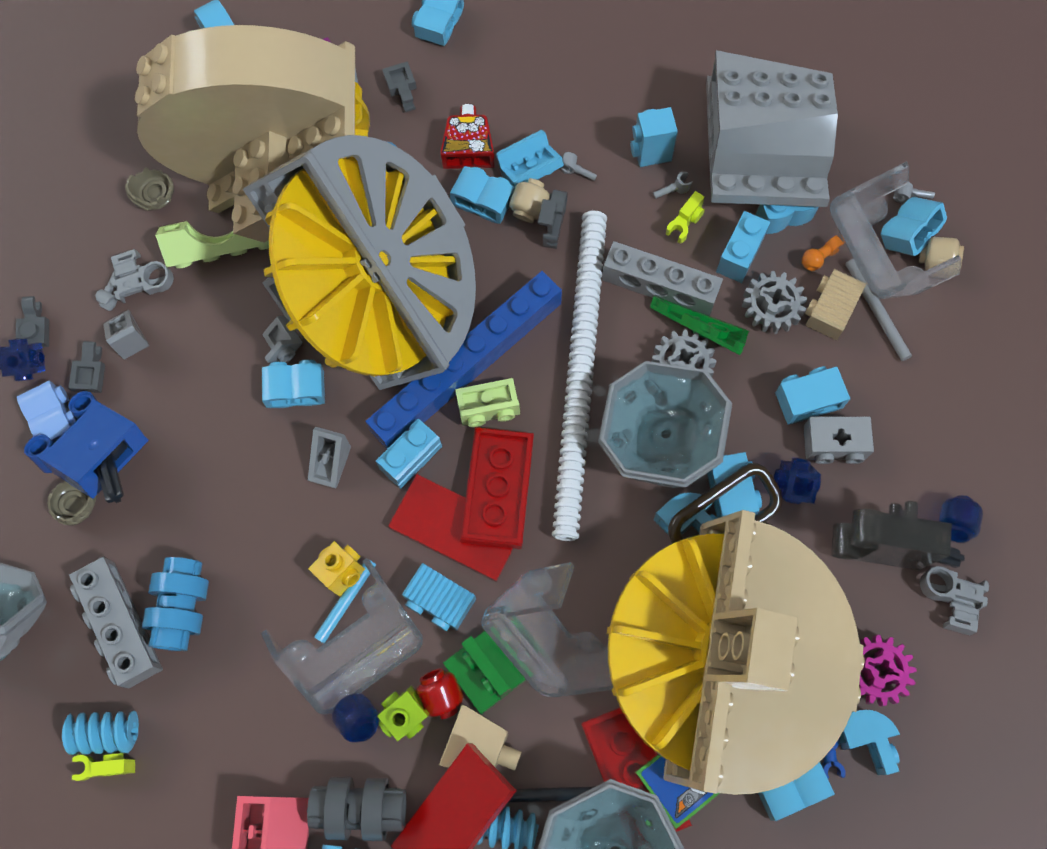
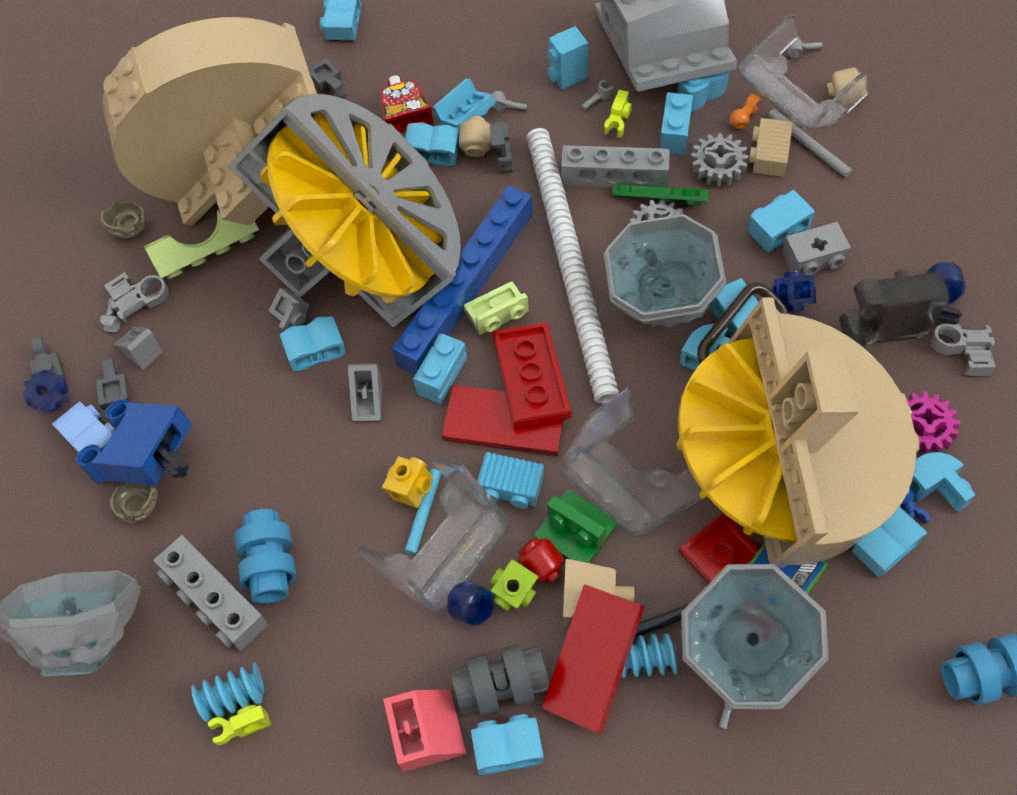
camera: 15 degrees left, 10 degrees down
(913, 226) = (815, 67): medium azure brick -> none

